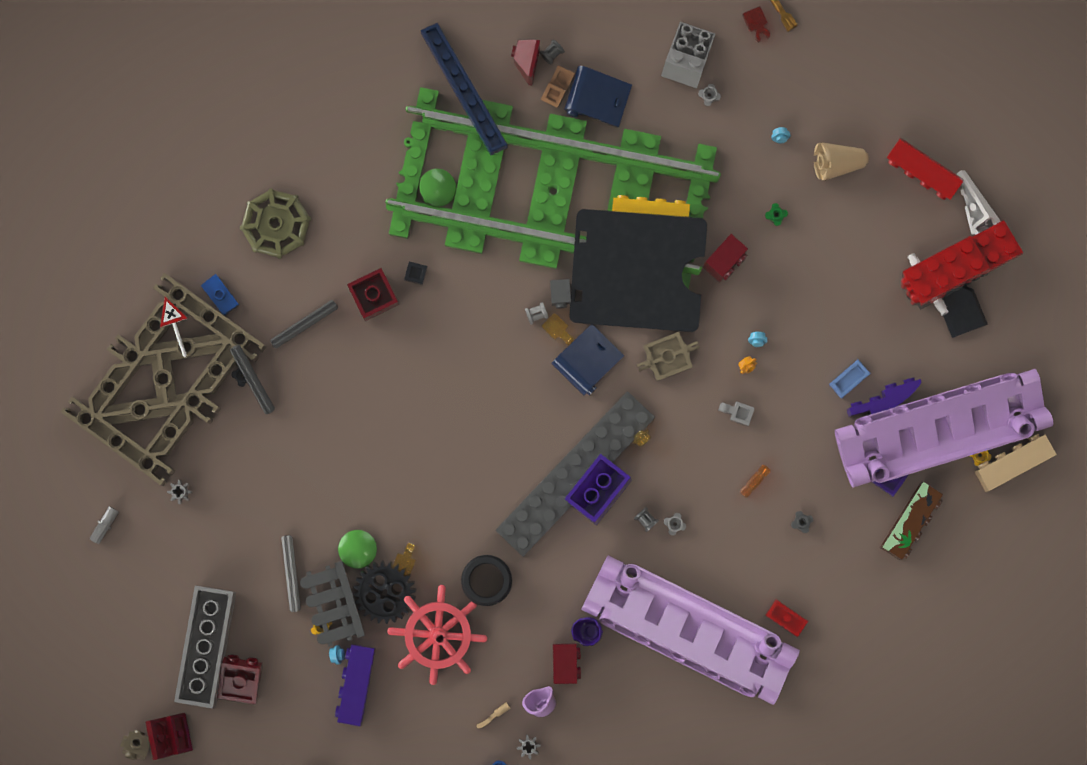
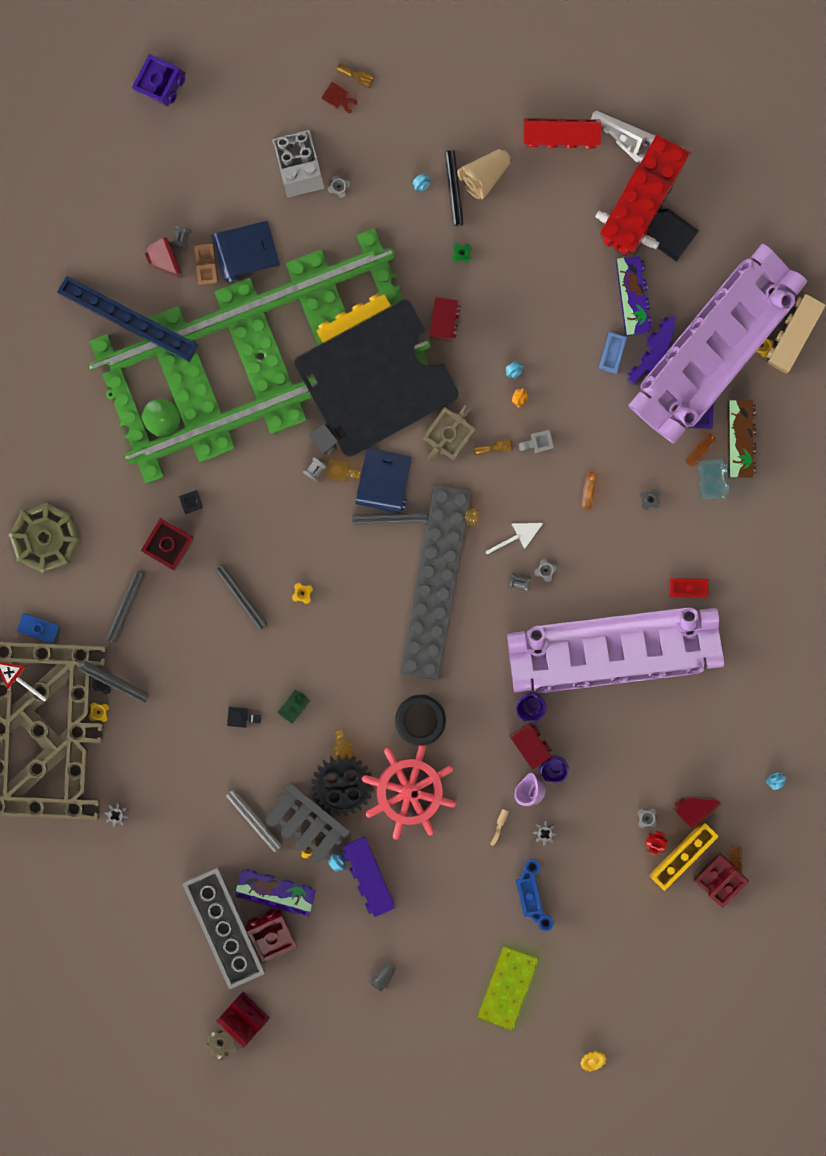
camera: 30 degrees left, 5 degrees up
(103, 525) = (71, 883): light grey axle -> none
(217, 397) = (102, 708): none -> yellow plate
(268, 646) = (275, 893): none -> brick
(337, 478) = (239, 717): none -> black plate
(357, 549) = (295, 764): bright green dish -> none
(388, 499) = (294, 706): none -> clear green bracket
(405, 379) = (242, 598): none -> dark grey axle
(458, 404) = (307, 591): none -> yellow plate
(572, 395) = (391, 518): none -> dark grey axle
(572, 697) = (554, 769): none -> dark purple hair
(598, 489) = (463, 583): dark purple slope -> none
(677, 480) = (525, 533): none -> white piece
(703, 395) = (499, 446): none -> pearl gold piece
(804, 157) = (454, 190): none -> black axle
(865, 539) = (712, 479): none -> clear light blue bracket
(871, 508) = (700, 450): none -> clear orange axle
(897, 342) = (632, 295): none -> brick

